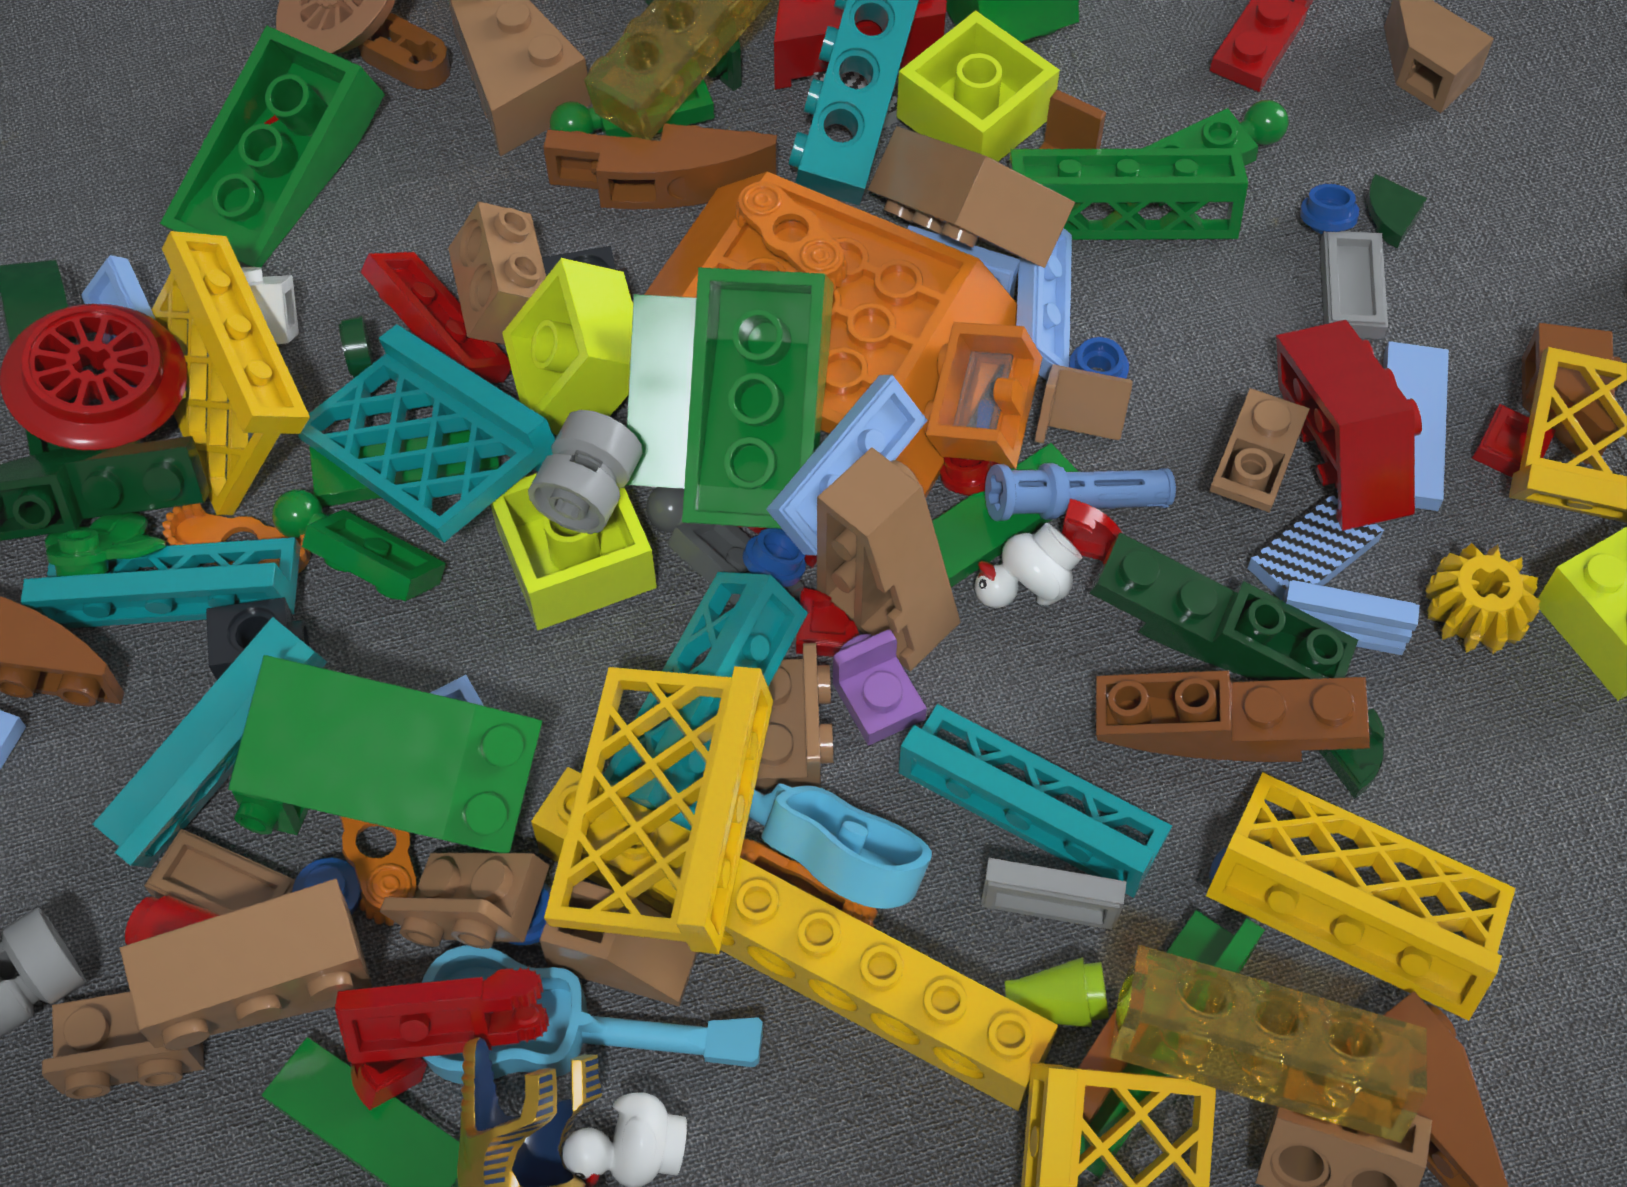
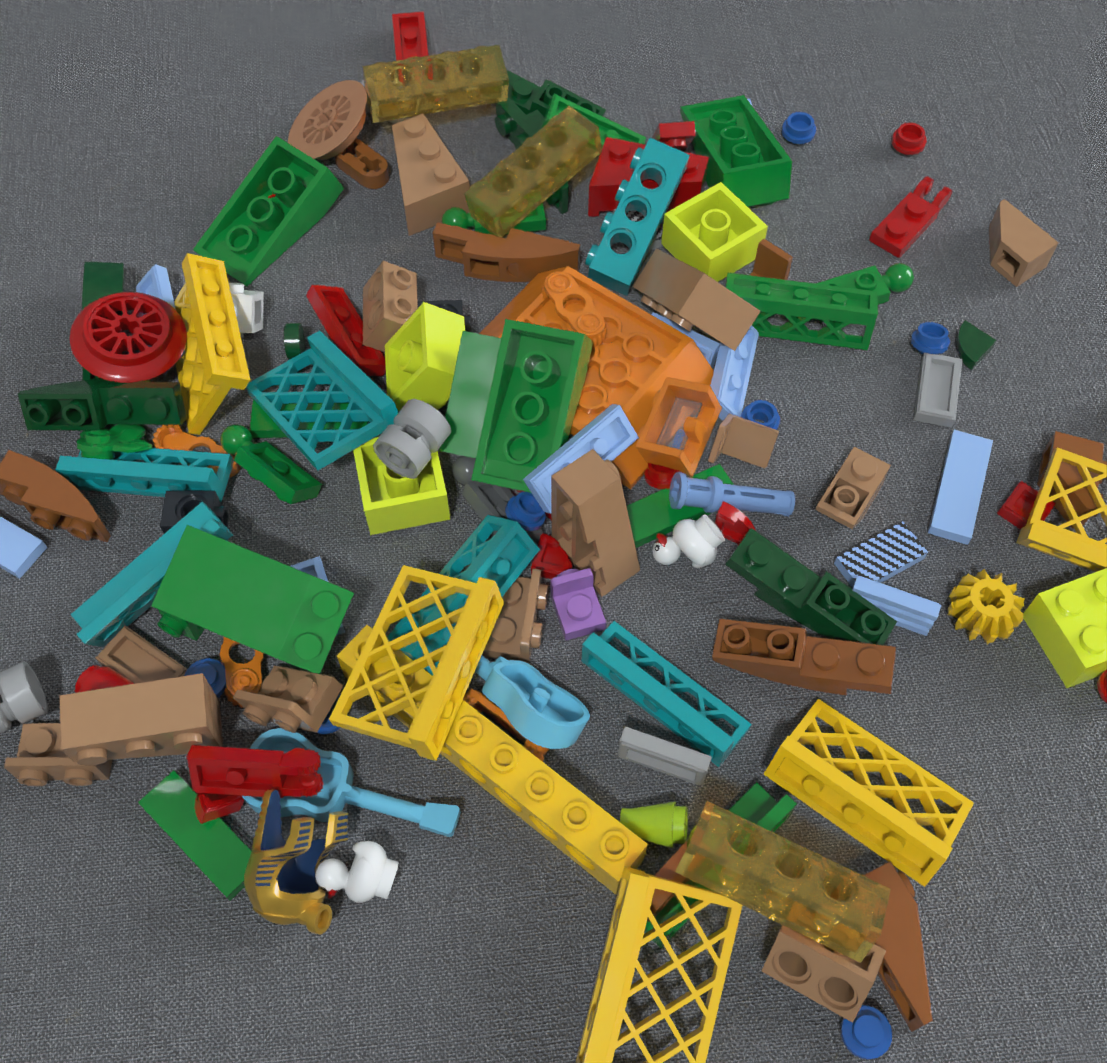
camera: 10 degrees right, 0 degrees up
(625, 962) = (383, 757): medium nougat slope -> none
(1355, 418) = (920, 477): red wedge -> none
(1359, 766) = (884, 705): dark green tile -> none

